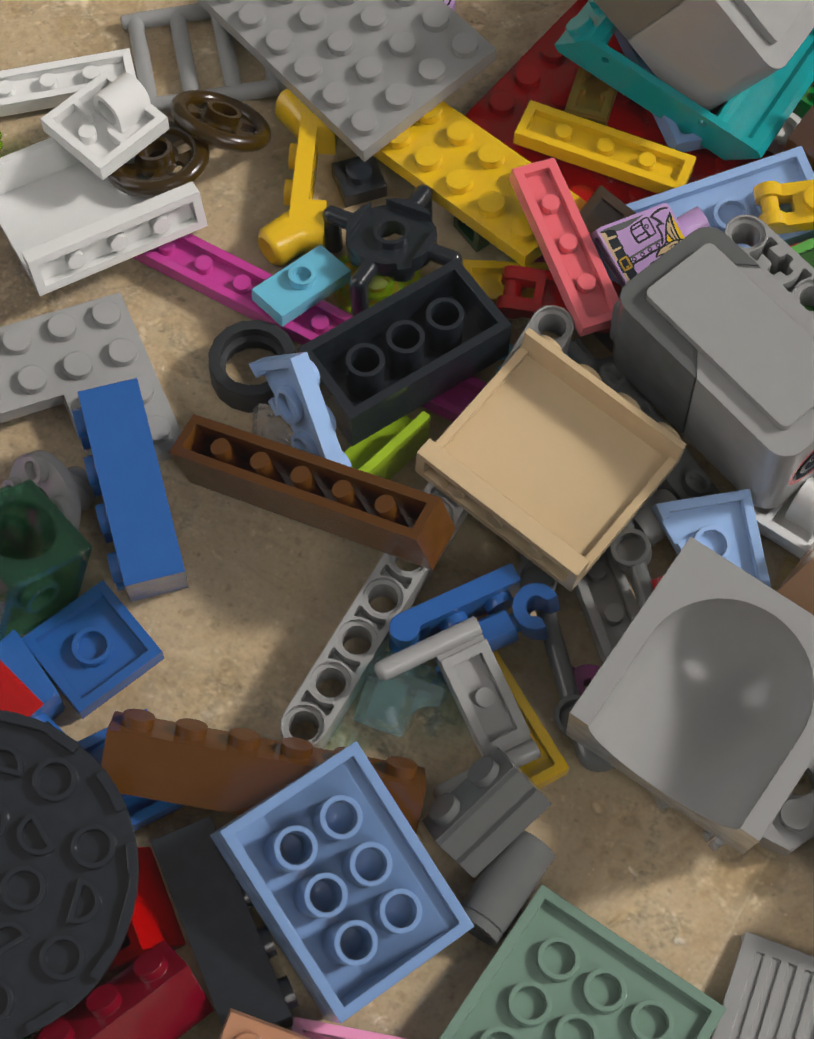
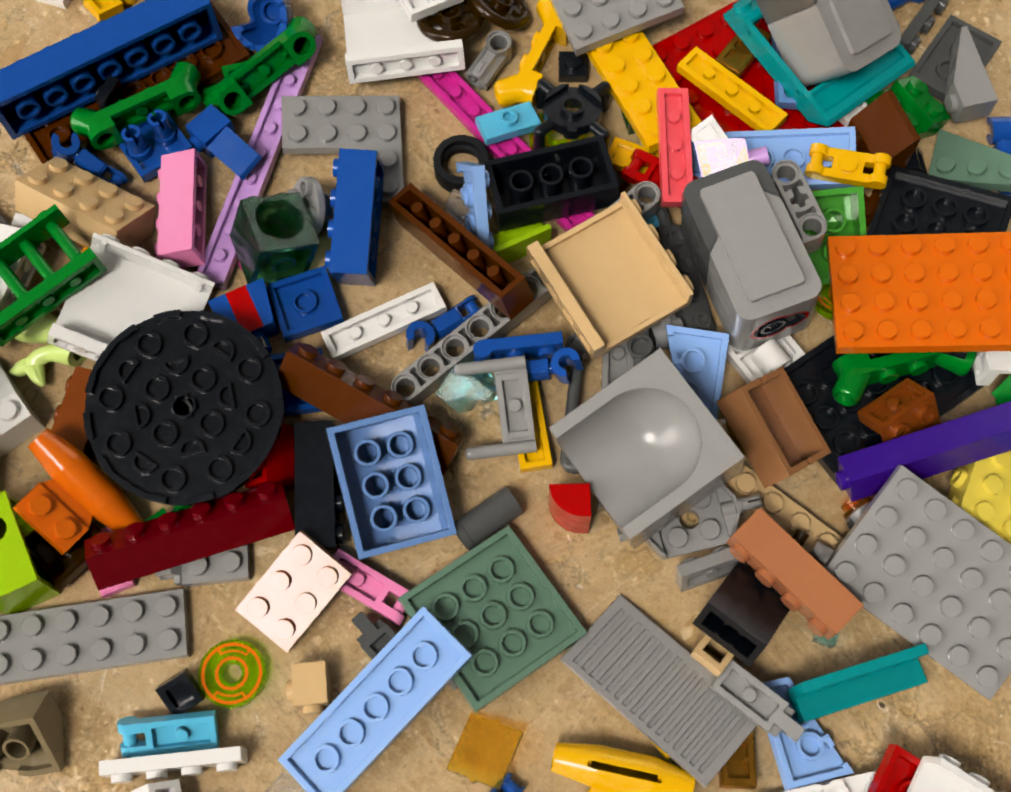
camera: 25 degrees right, 5 degrees up
(225, 637) = (383, 321): none -> white plate
(236, 203) = (490, 61): none -> light grey piece
(318, 612) = (441, 325): none -> blue piece
(485, 812) = (489, 471): dark grey brick -> none
(629, 822) = (571, 506): none -> red brick

